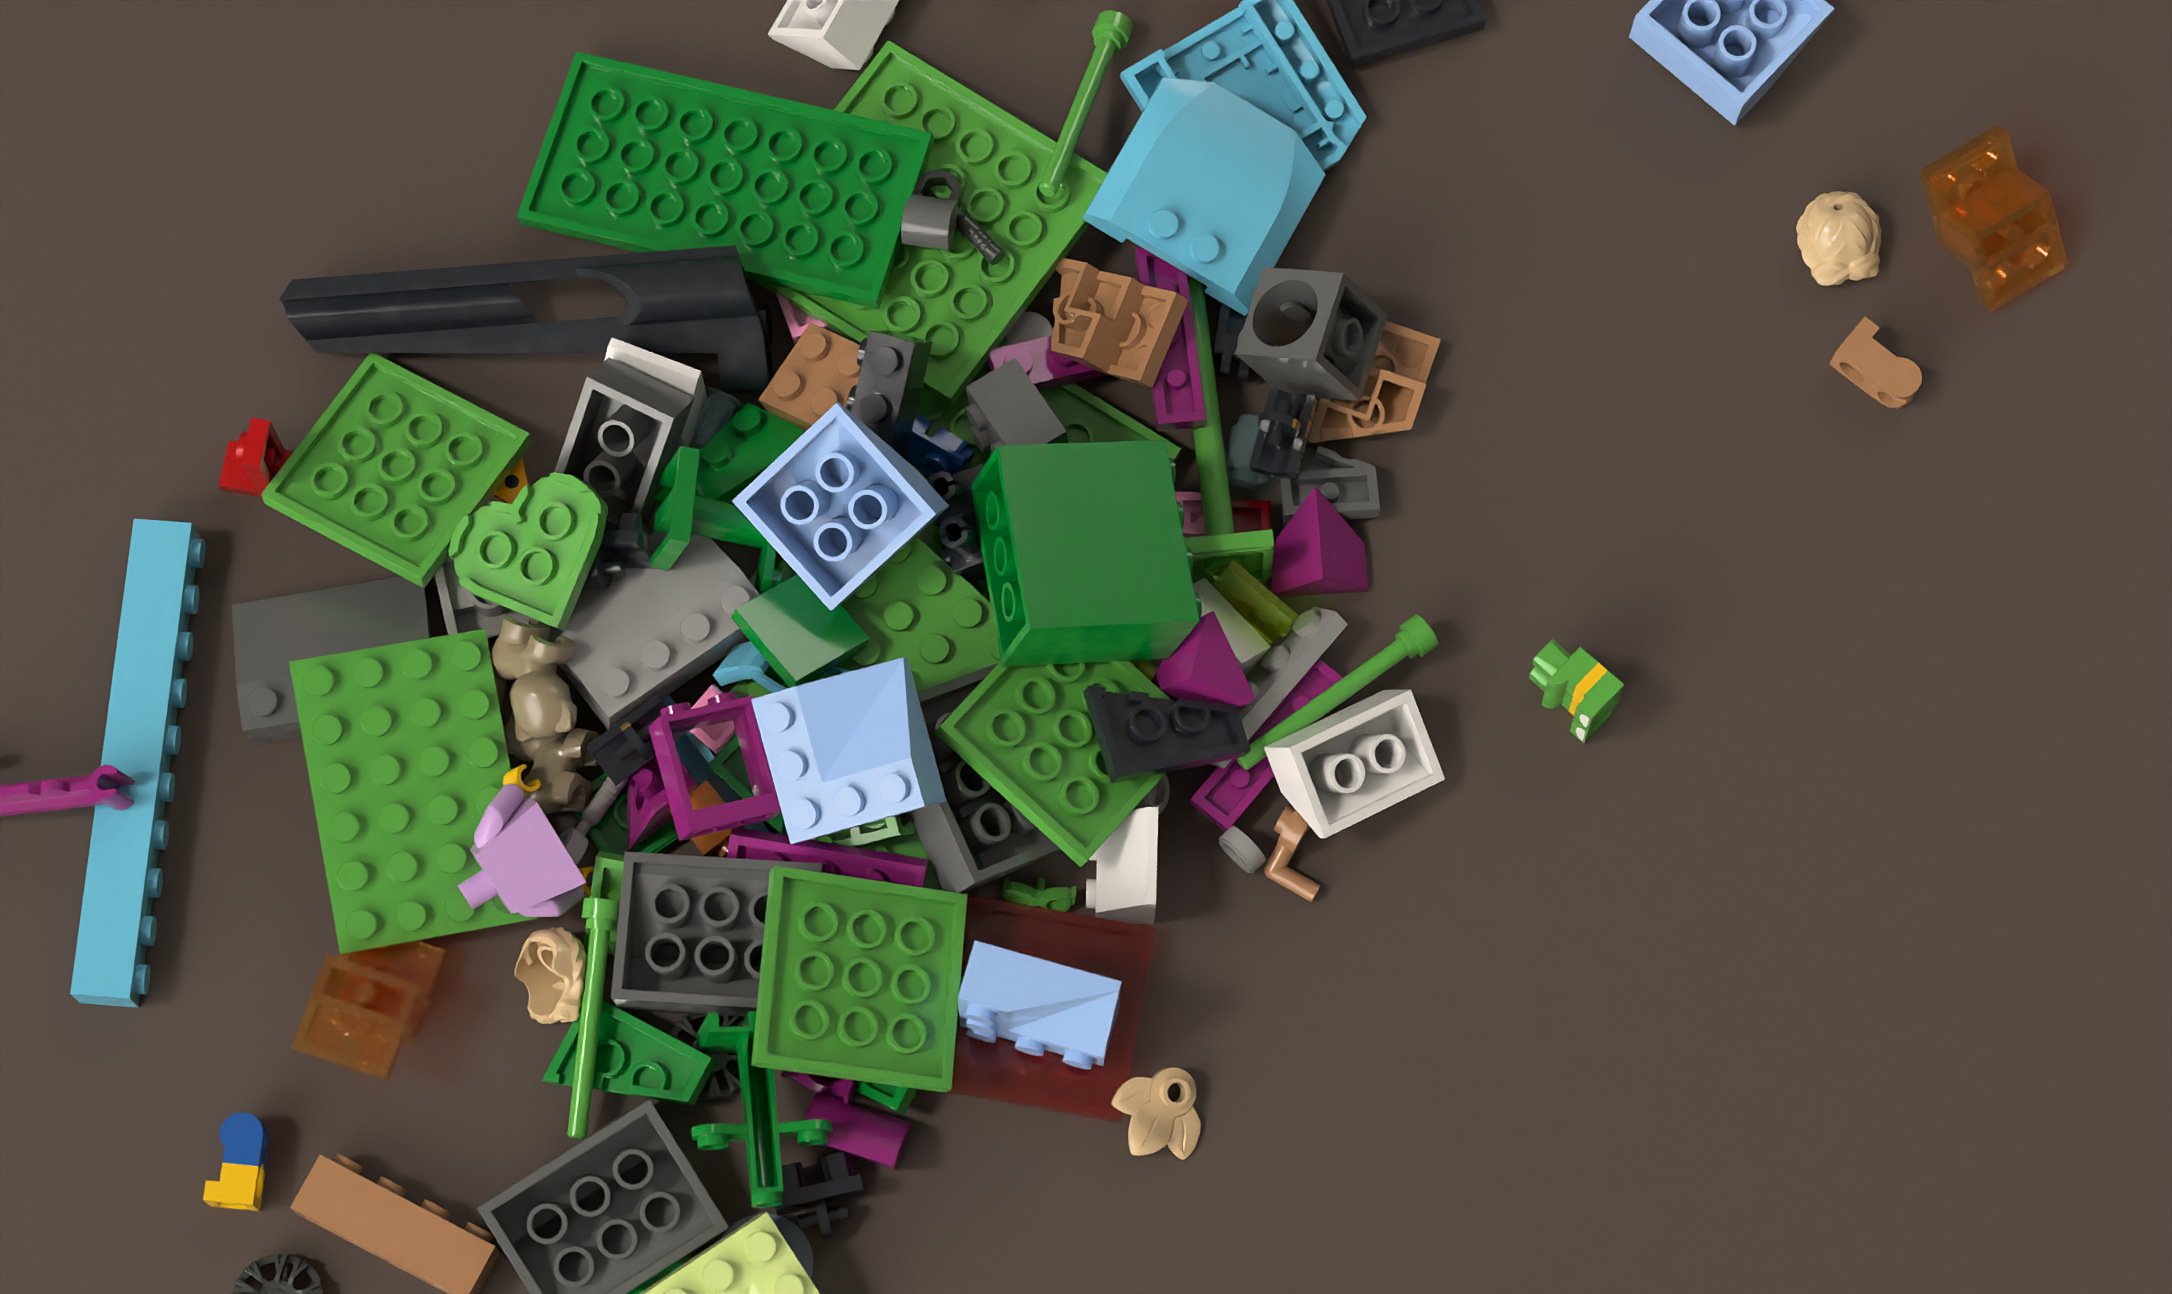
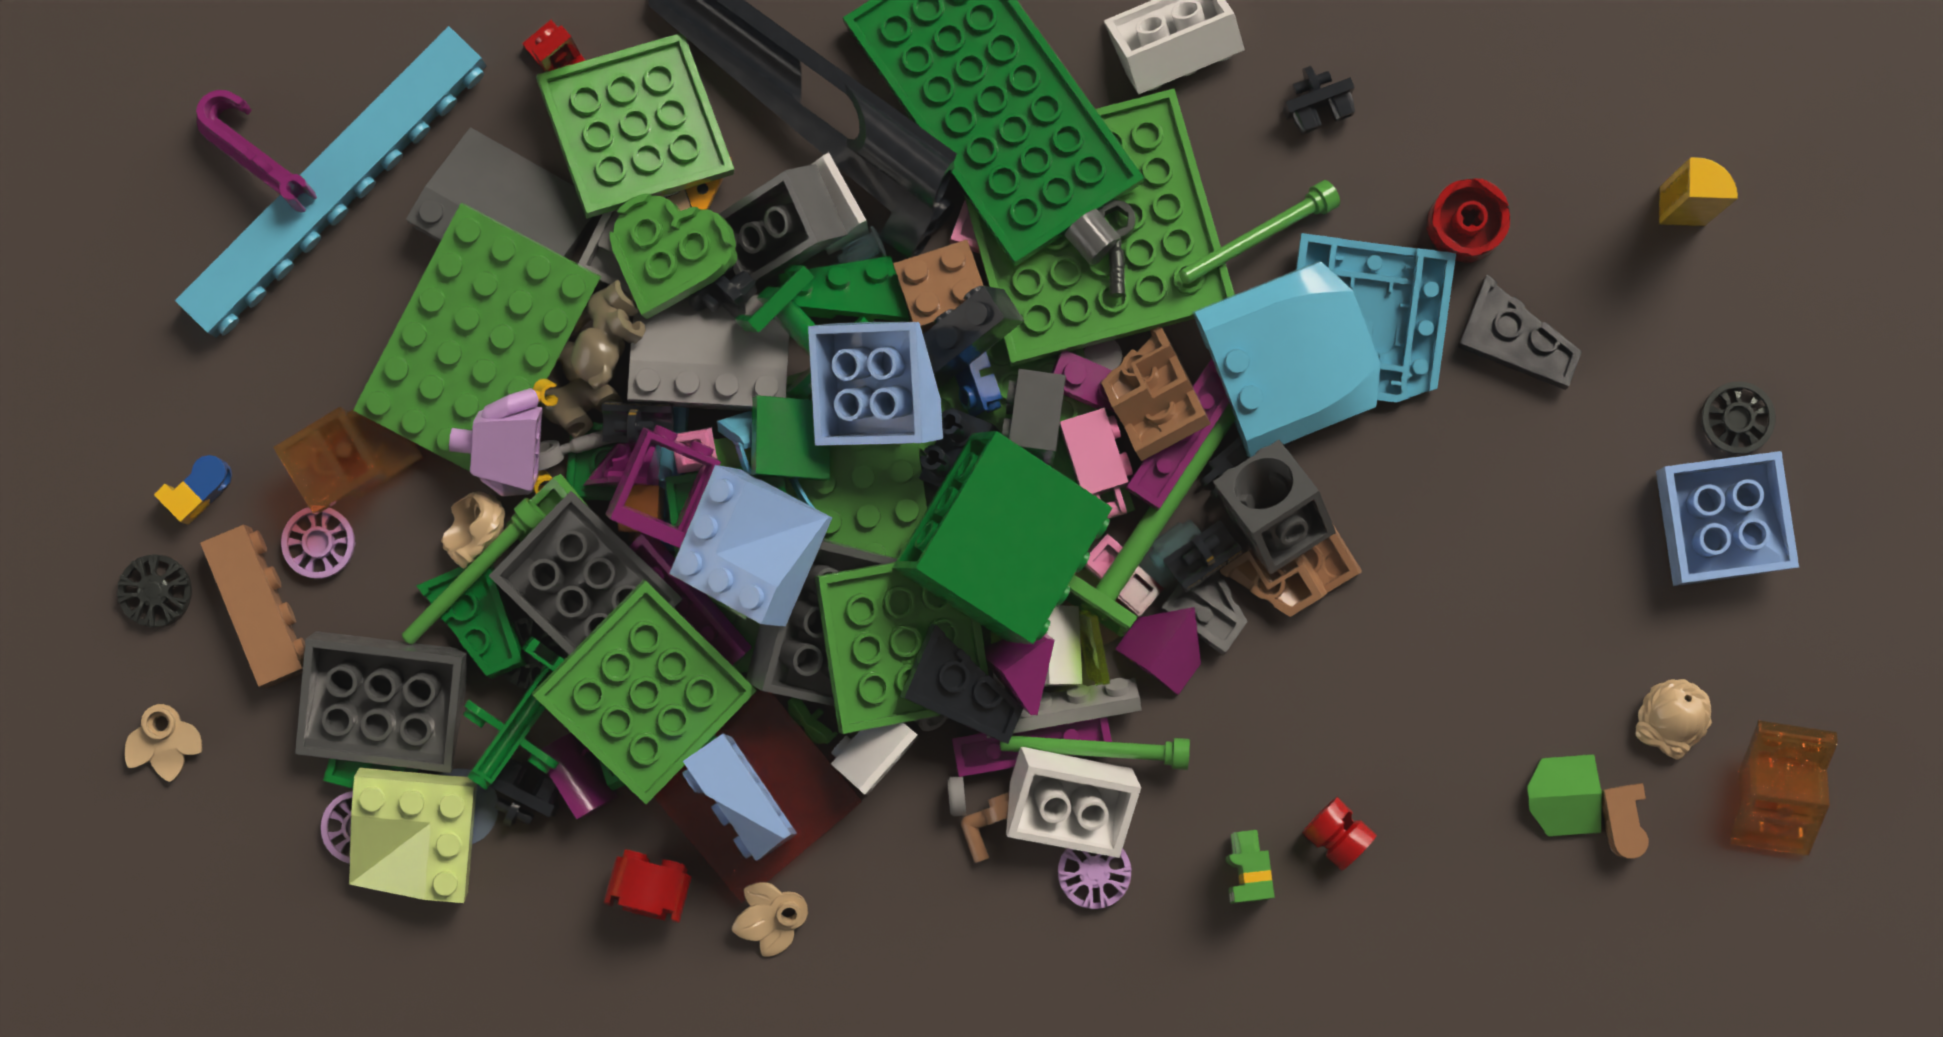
camera: 45 degrees right, 10 degrees up
(407, 1119) = (318, 543): none -> lavender wheel
(1017, 1176) = (648, 887): none -> red brick
(1099, 415) = (1096, 456): none -> bright pink brick
(1432, 819) = (1093, 873): none -> lavender wheel
(1630, 589) = (1339, 833): none -> red wheel
(1806, 389) = (1566, 795): none -> bright green slope

